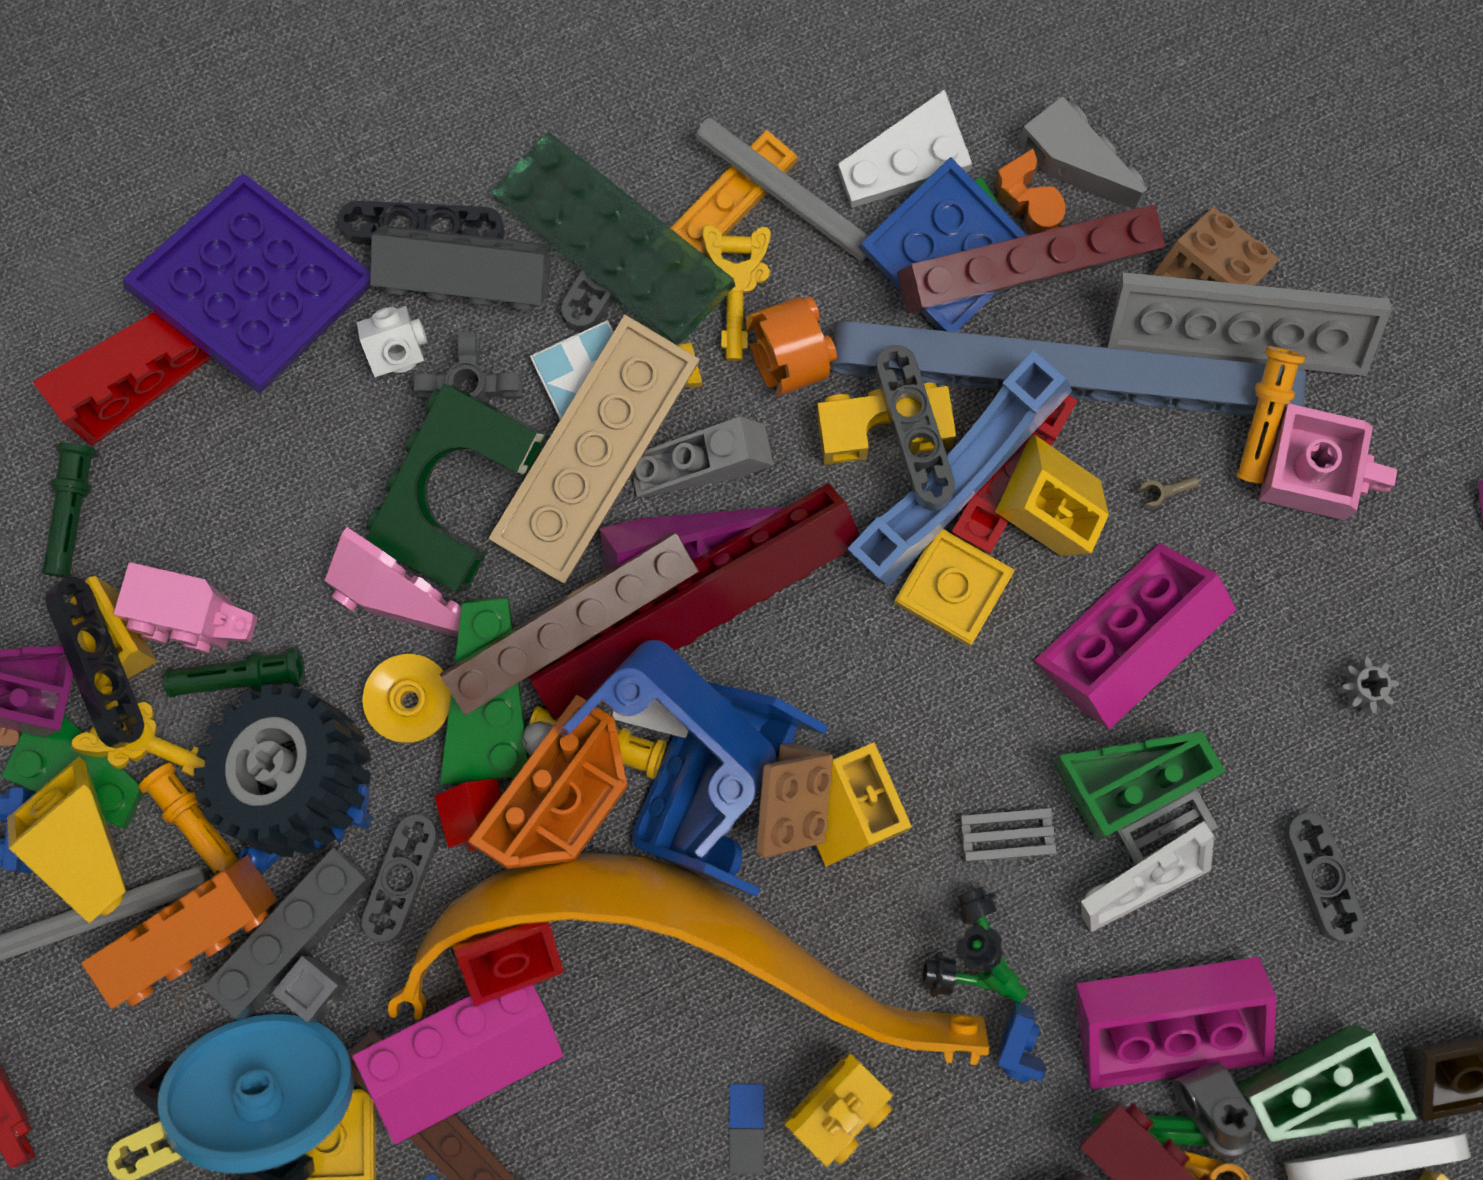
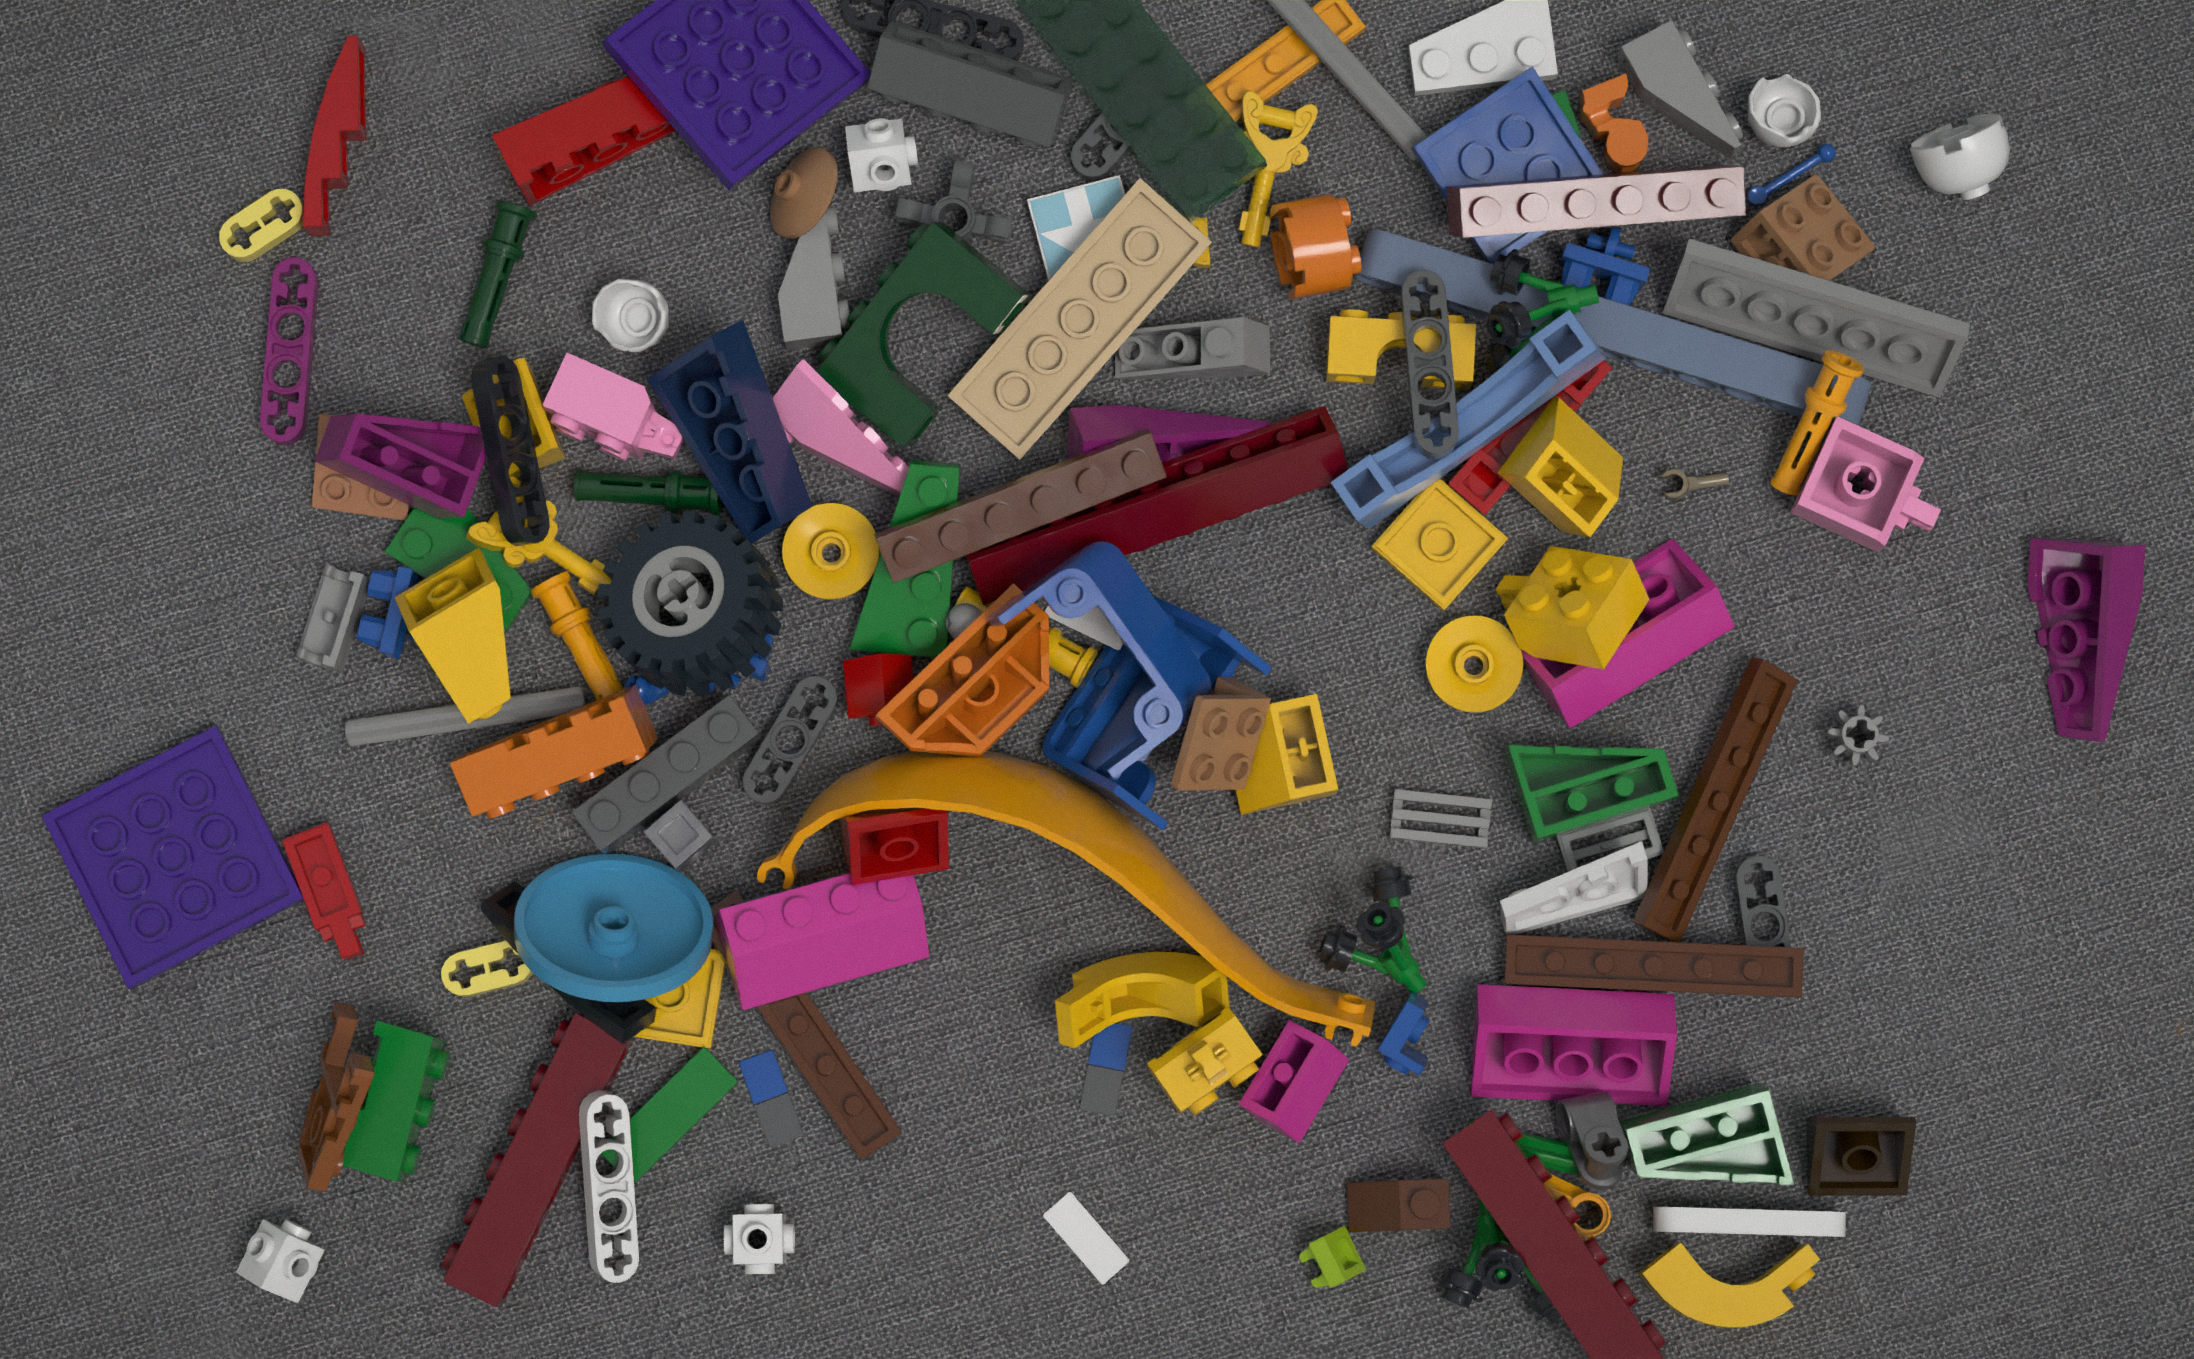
camera: 10 degrees right, 5 degrees up
(191, 521) = (630, 314): none -> white hair
(298, 604) = (734, 430): none -> dark blue wedge
(328, 385) = (803, 192): none -> medium nougat dish
(349, 465) = (809, 291): none -> light grey slope
(762, 1047) = (1140, 986): none -> yellow arch
(925, 1110) = (1294, 1081): none -> dark pink brick
(983, 370) = (1511, 321): none -> black plant
(1024, 671) = (1479, 639): none -> yellow dish
(1049, 313) = (1623, 275): none -> blue hips
(1090, 617) = (1574, 606): none -> yellow hinge
(1174, 157) = (1783, 111): none -> white hair
(1216, 188) = (1758, 195): none -> blue hinge
(1236, 934) = (1654, 966): none -> reddish brown plate
(1253, 771) = (1715, 800): none -> reddish brown plate
(1340, 165) = (1963, 156): none -> white cylinder

